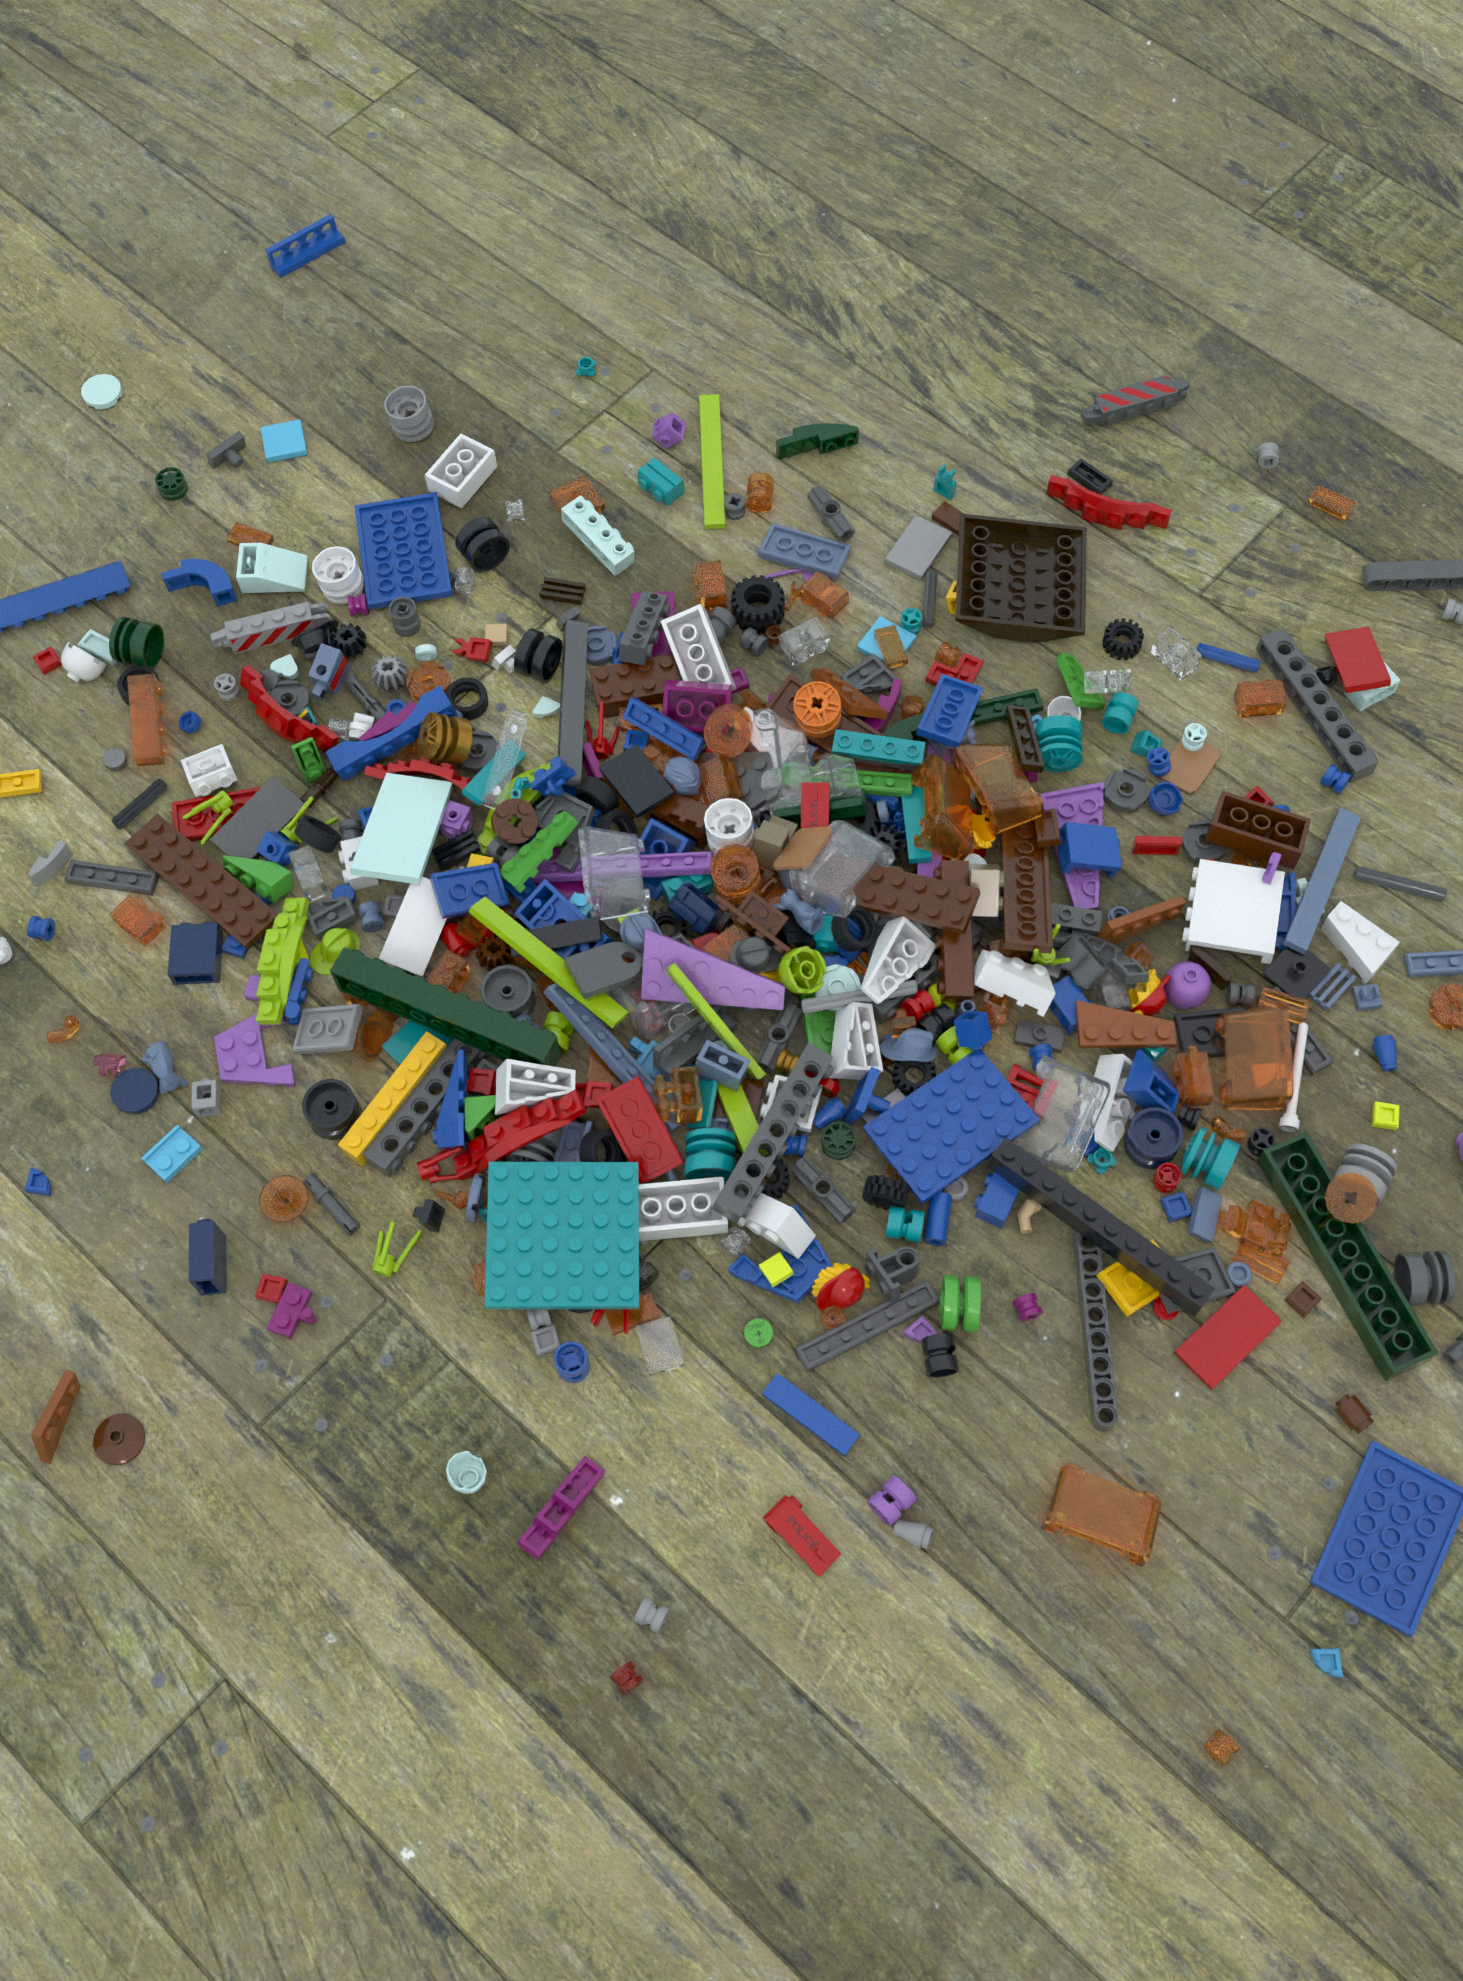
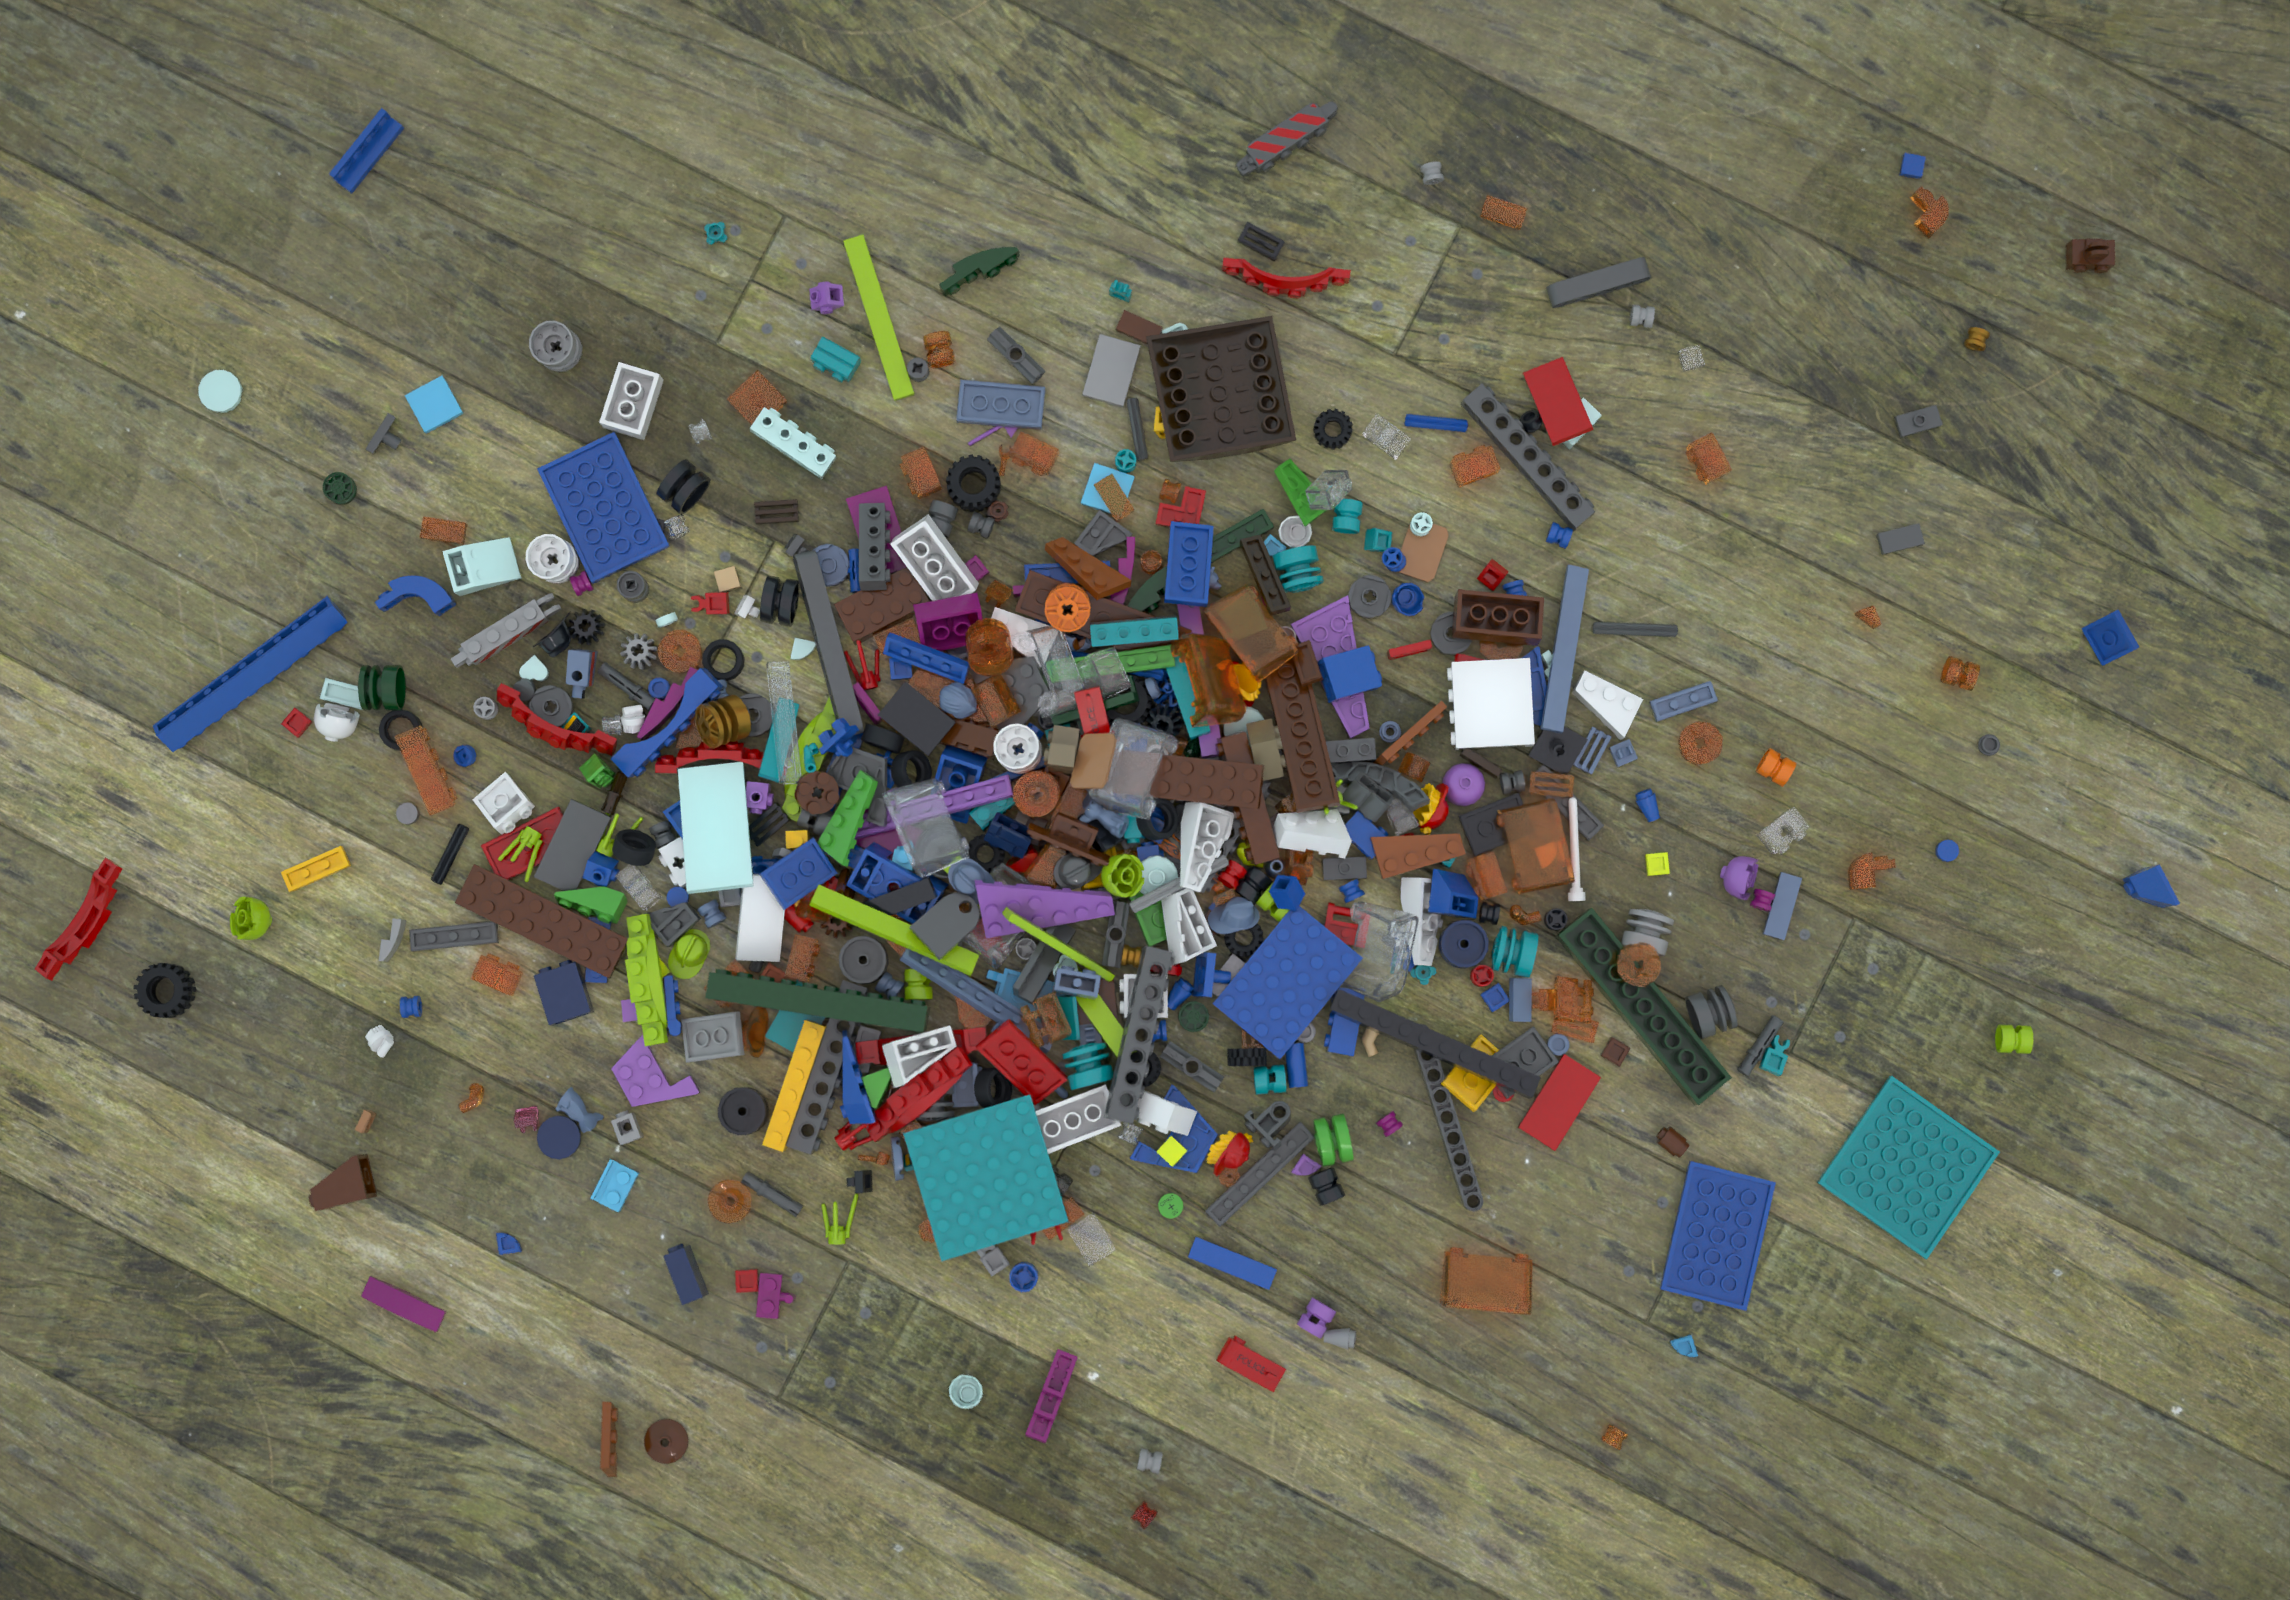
camera: 20 degrees left, 20 degrees up
(804, 641) = (1031, 501): clear brick -> none
(1271, 868) = (1517, 661): medium lavender tile -> none

